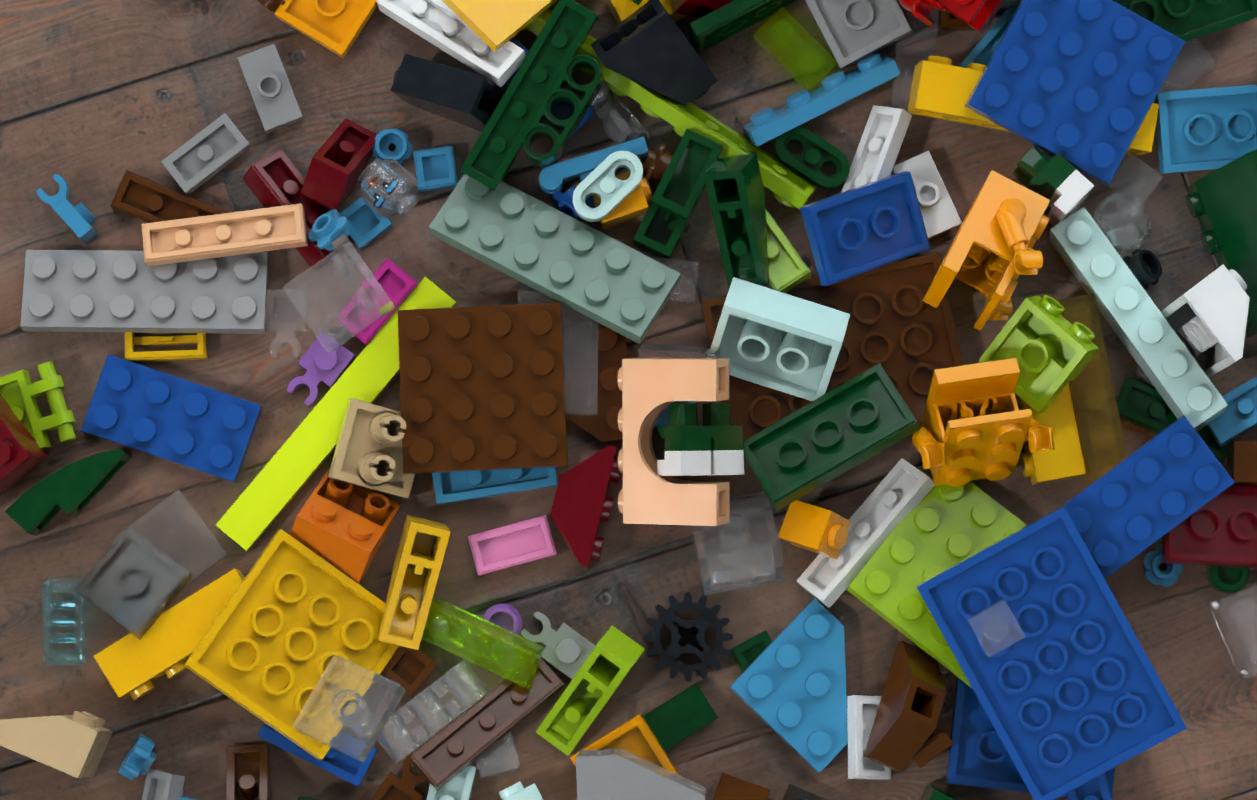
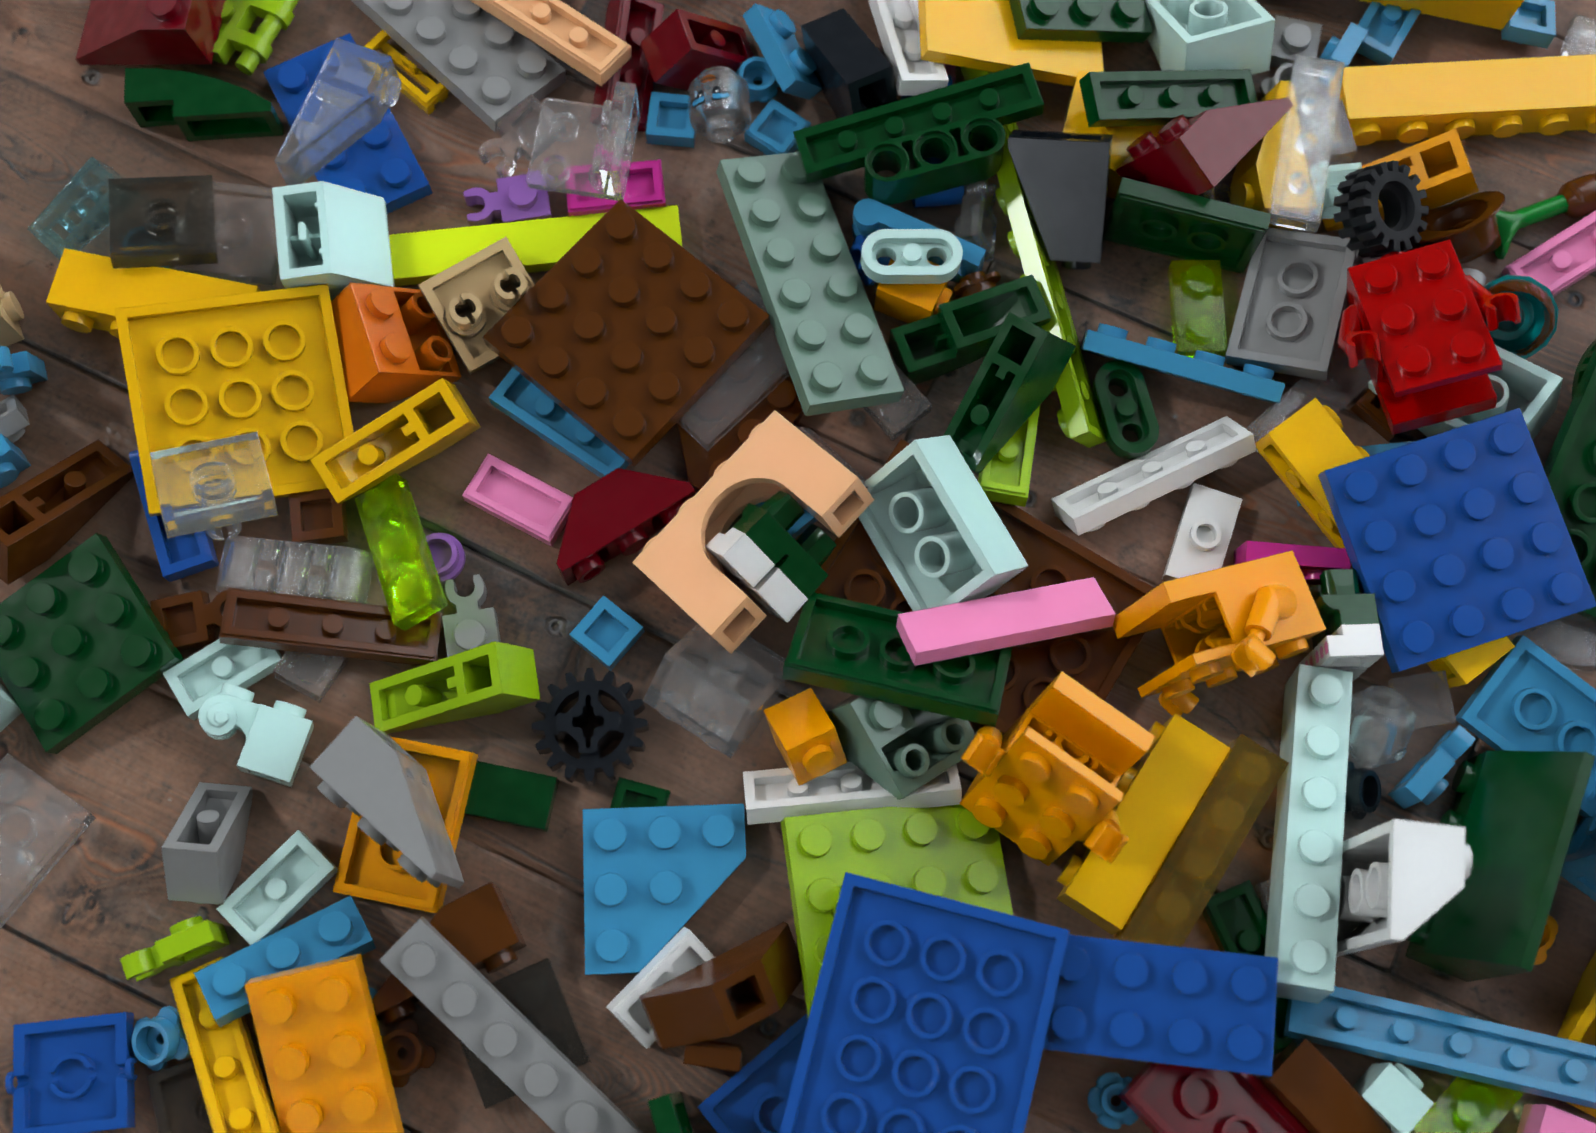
camera: 40 degrees right, 10 degrees down
(167, 408) = (339, 109): none -> clear slope
(252, 498) = (331, 236): none -> light aqua slope
(328, 229) = (644, 85): dark azure plate -> none
(390, 114) = (787, 60): none -> dark azure plate
(643, 575) = (607, 633): none -> dark azure plate
(865, 228) = (1117, 504): blue tile -> none
(867, 359) = (1004, 620): none -> bright pink tile
(872, 487) = (898, 743): none -> sand green slope
(996, 628) = (885, 986): clear plate -> none
(1003, 155) = (1311, 559): none -> dark pink plate
(1046, 350) = (1189, 766): lime plate -> none
(1173, 224) = (1425, 779): none -> dark azure plate

